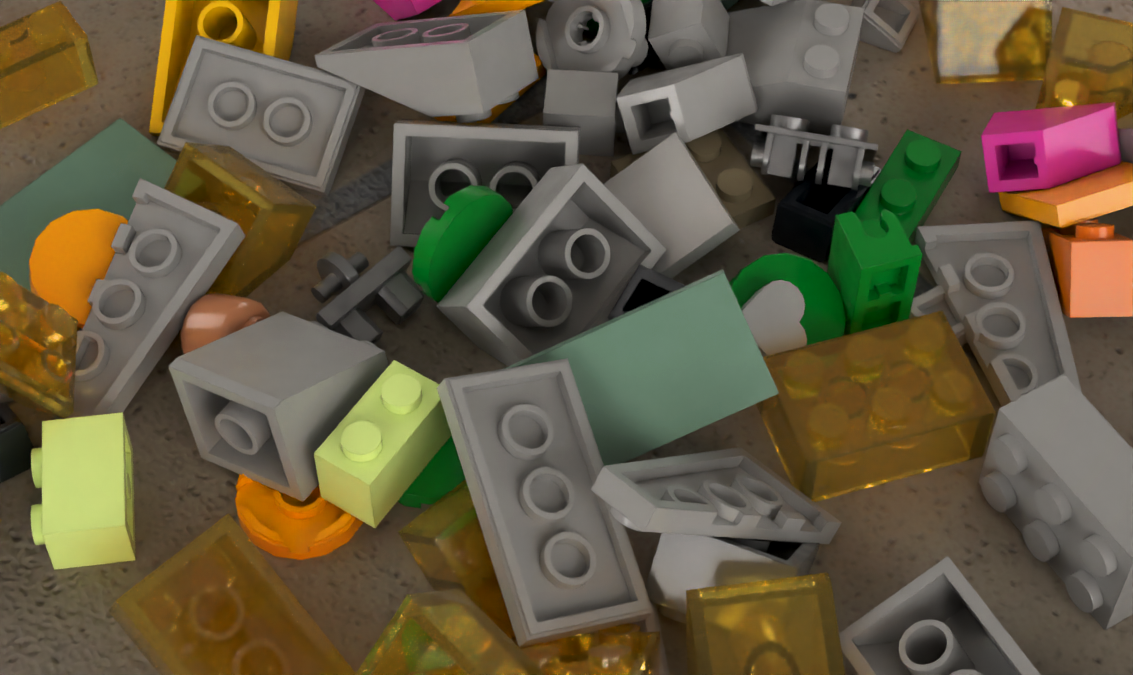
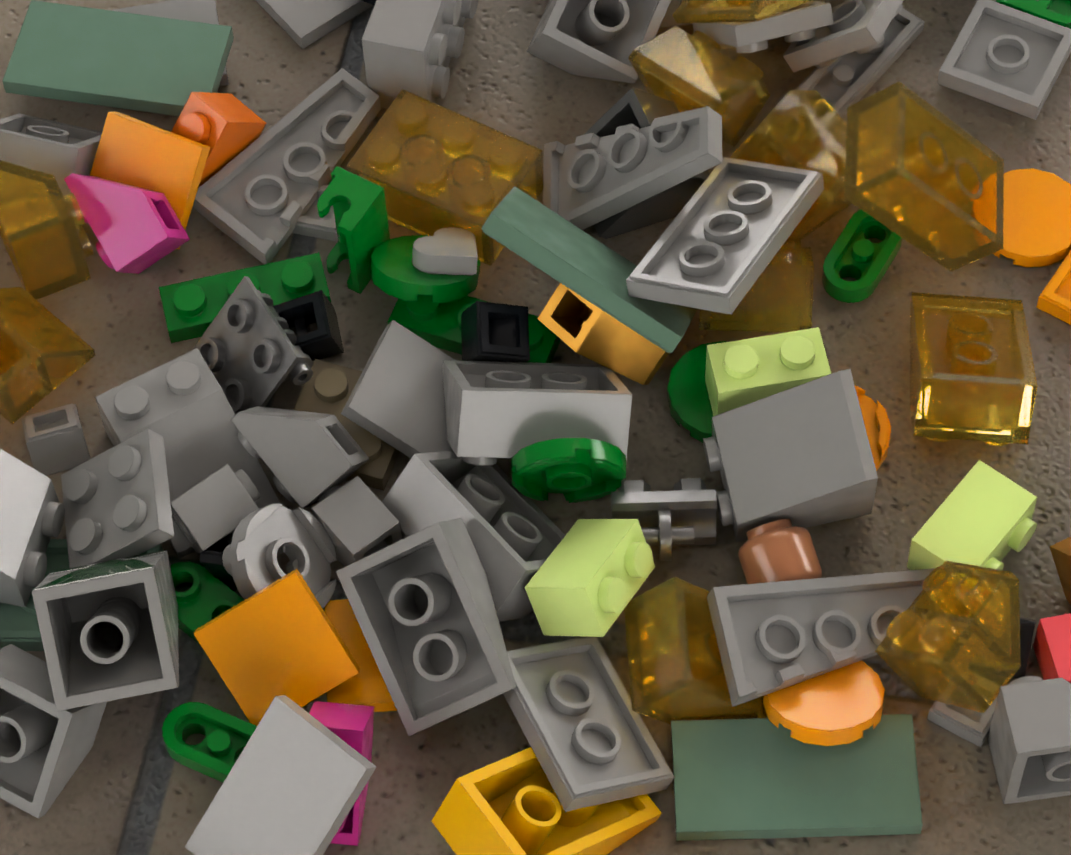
camera: 130 degrees left, 5 degrees up
(354, 185) = (590, 577): none -> yellowish green brick

